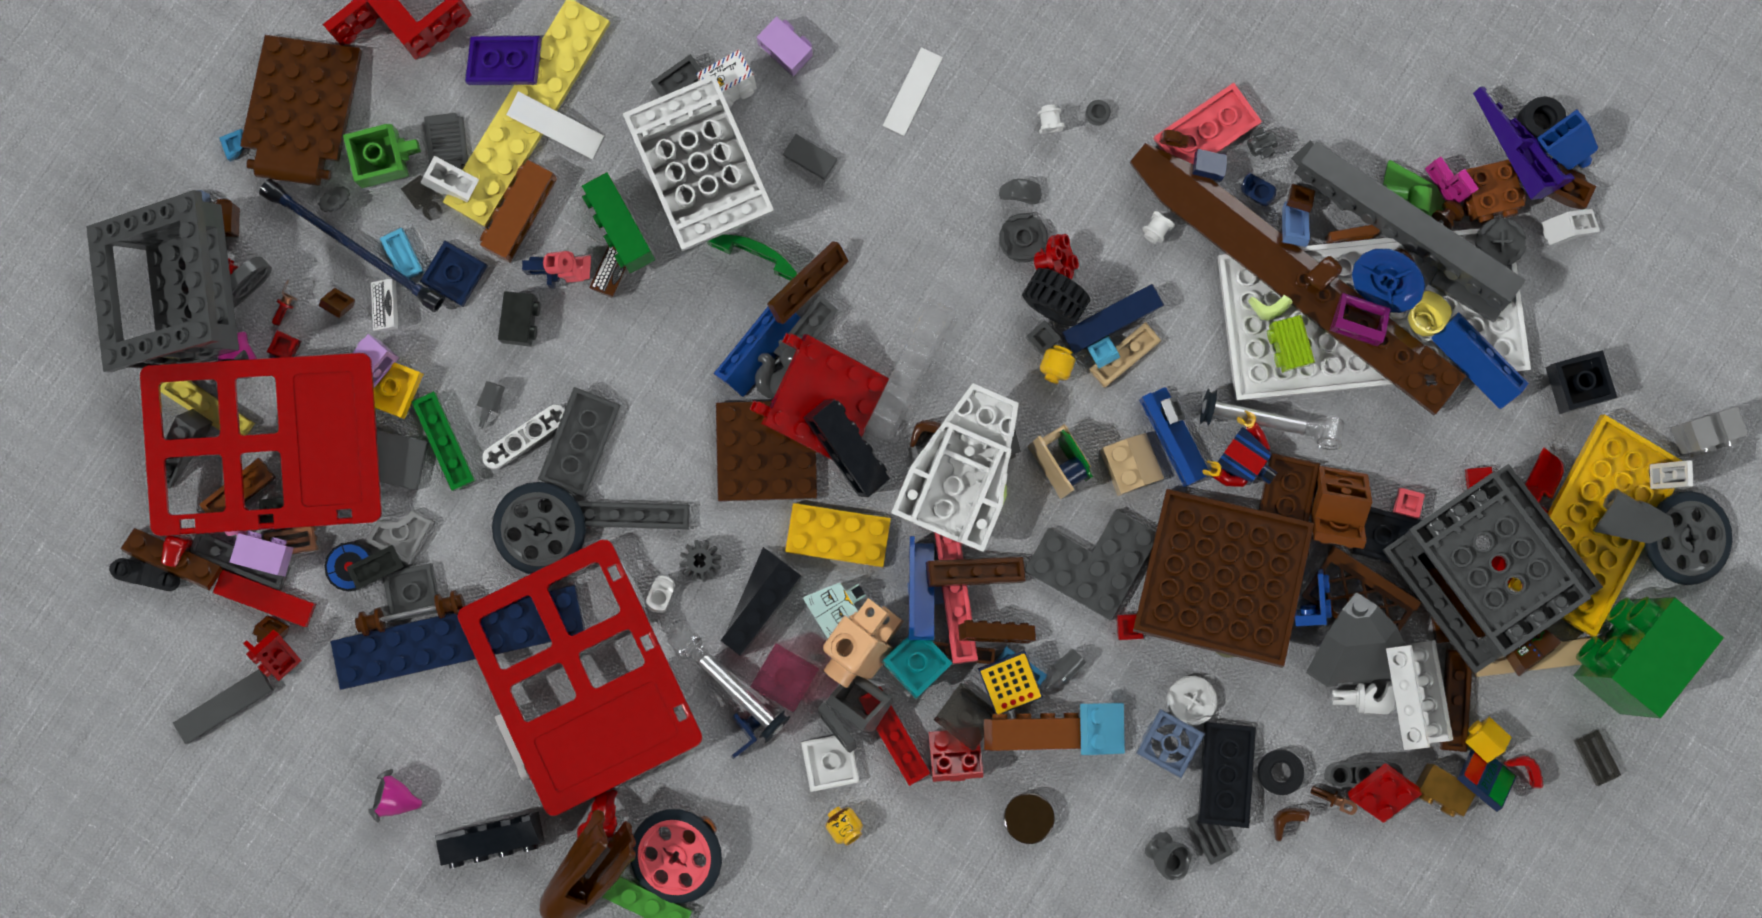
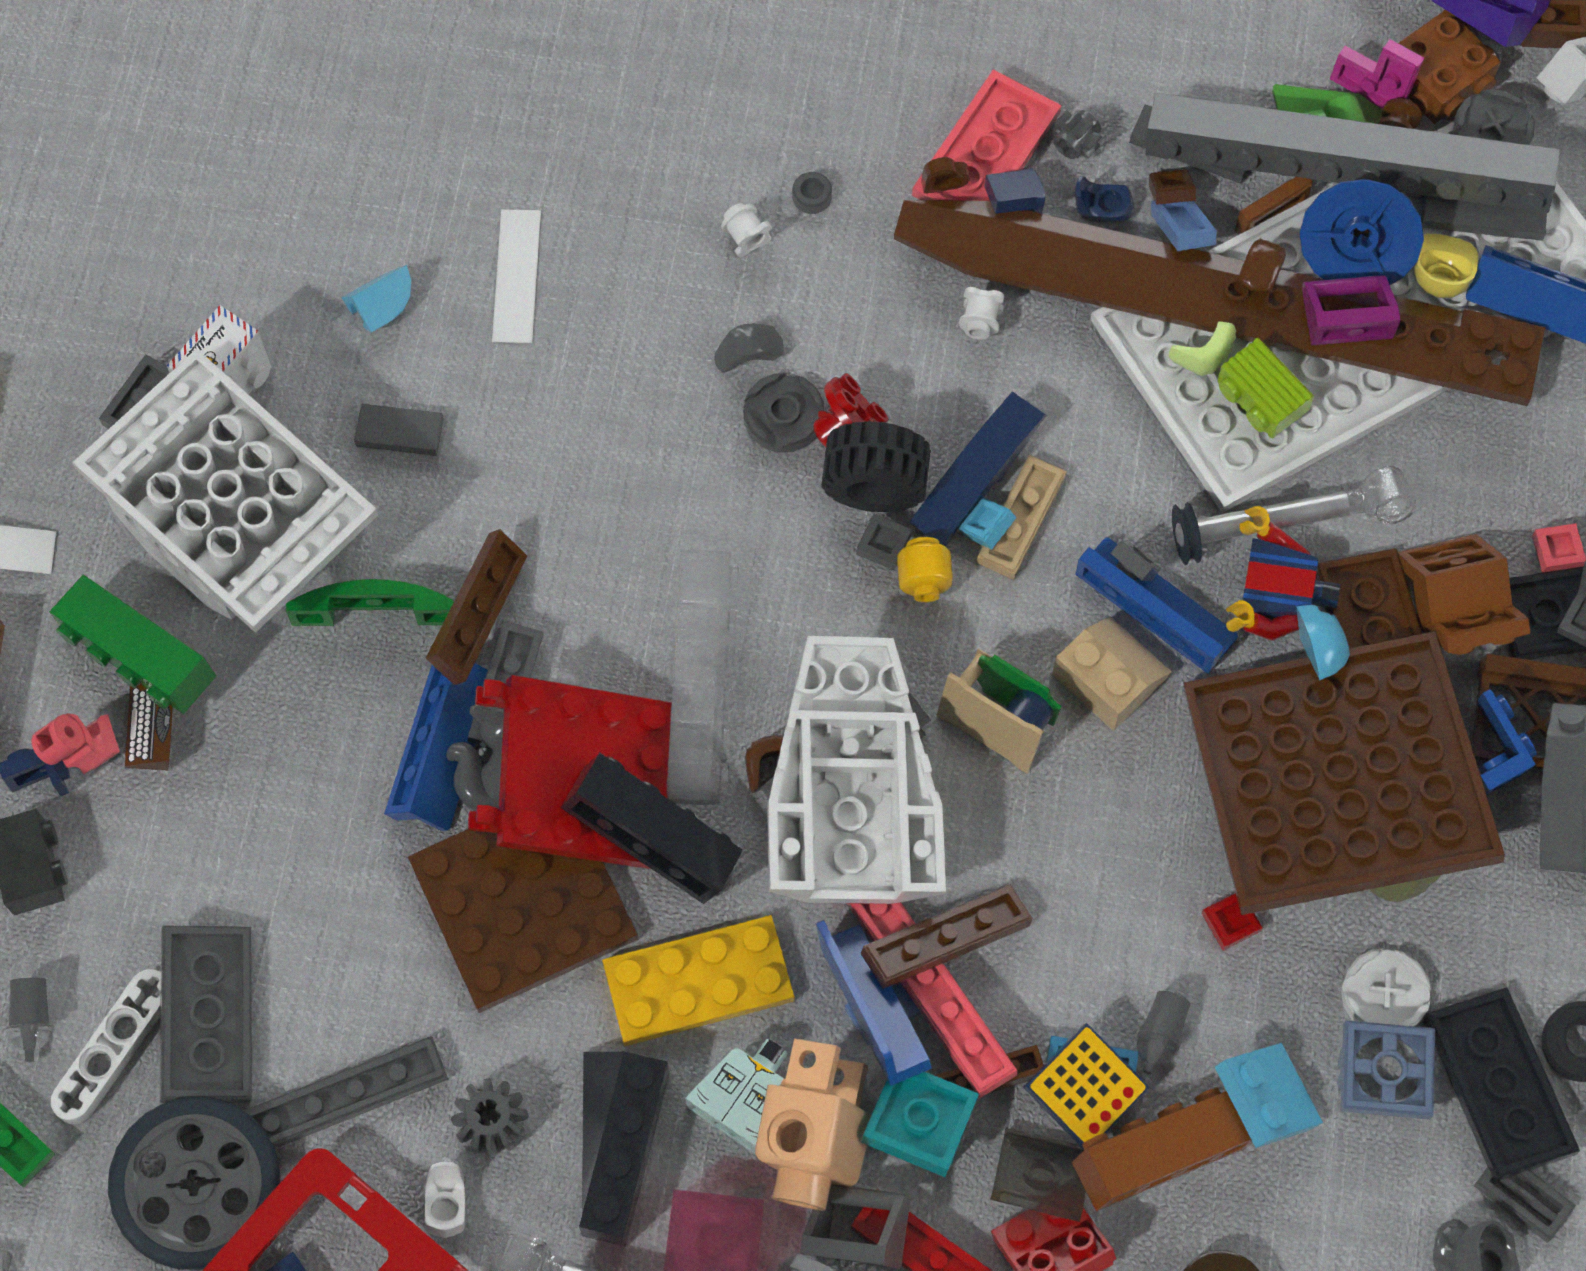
camera: 25 degrees left, 15 degrees down
(785, 46) = (290, 285): lavender brick -> none
(831, 74) = (380, 298): none -> medium azure brick
(996, 632) = (1026, 1015): reddish brown piece -> none
(1095, 577) = (1142, 866): dark grey plate -> none
(1251, 502) = (1322, 640): none -> medium azure brick

